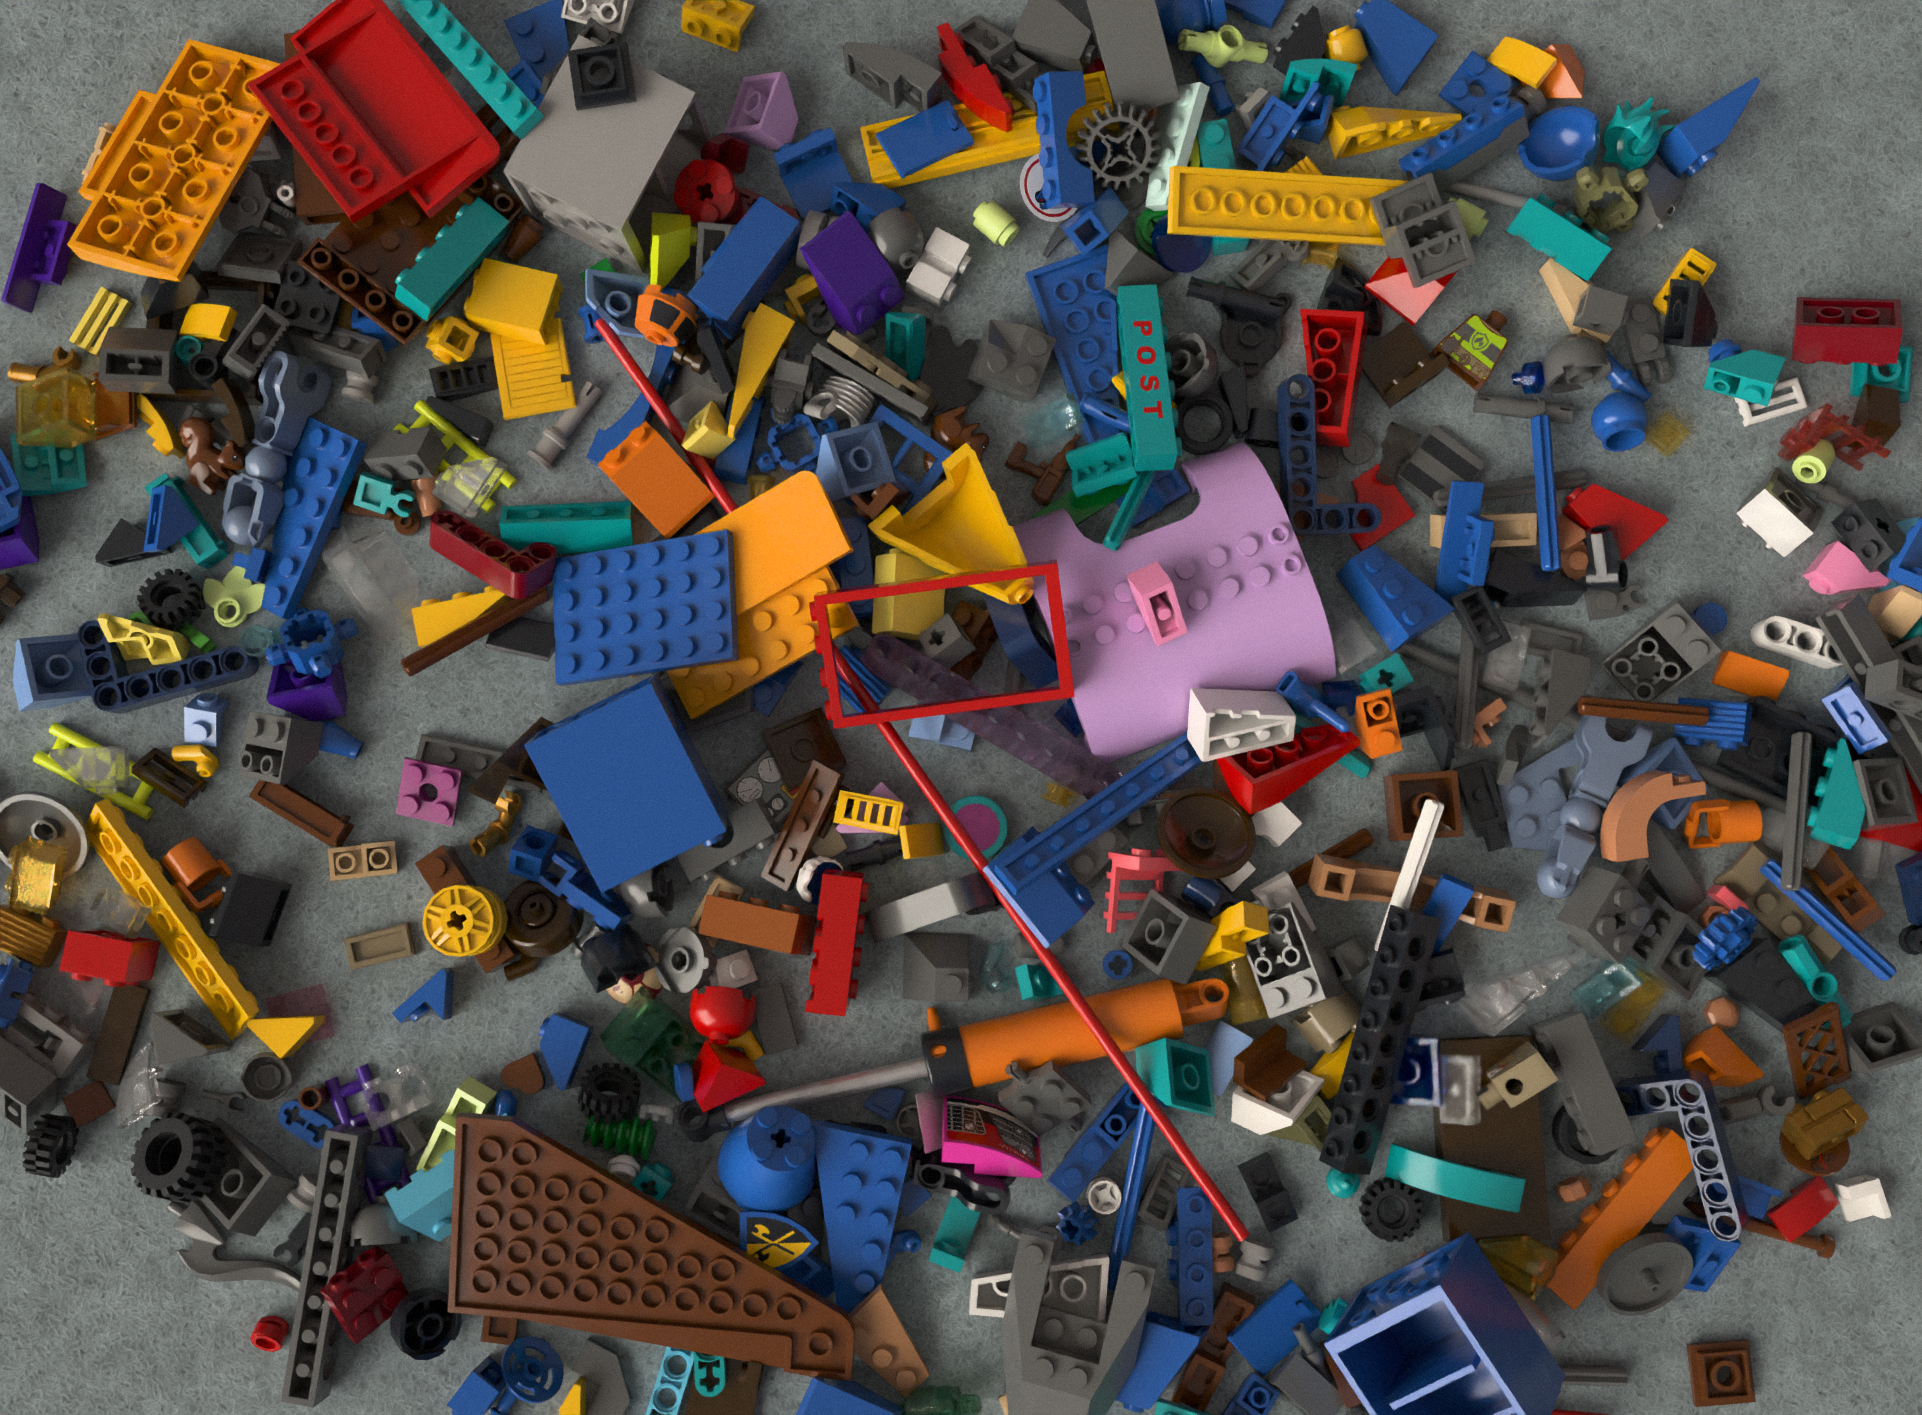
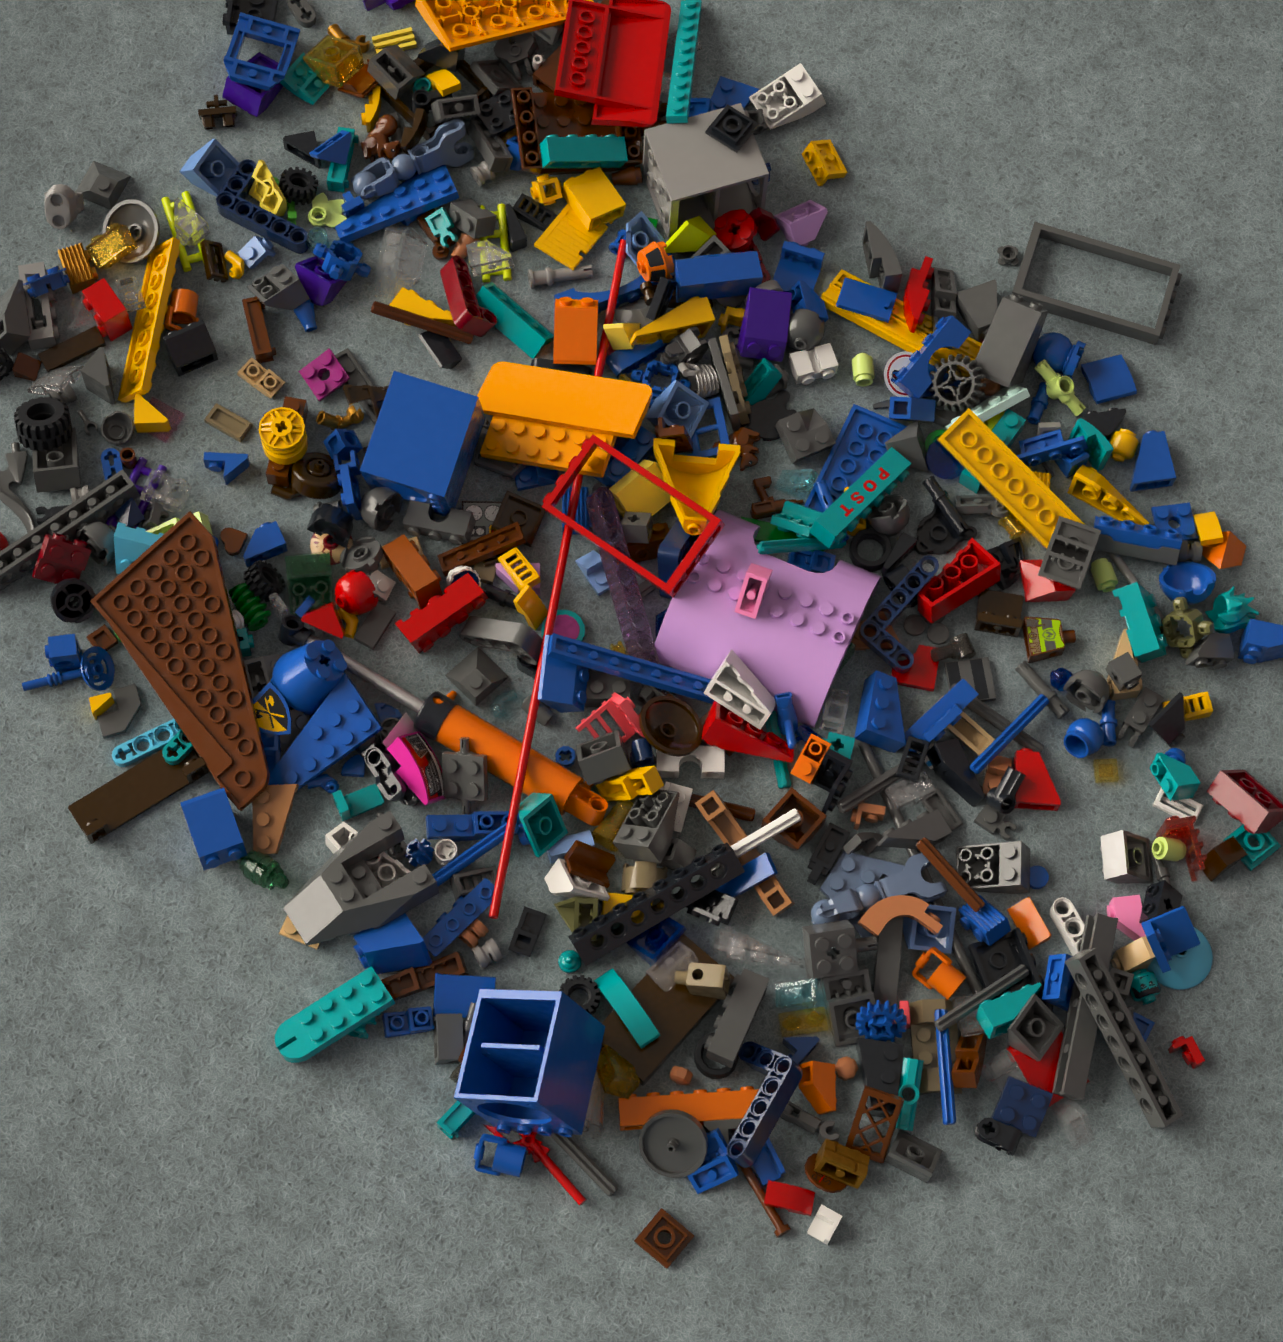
camera: 40 degrees right, 15 degrees down
(645, 608) = (512, 382): blue plate -> none
(1037, 983) = (516, 722): teal bracket -> none

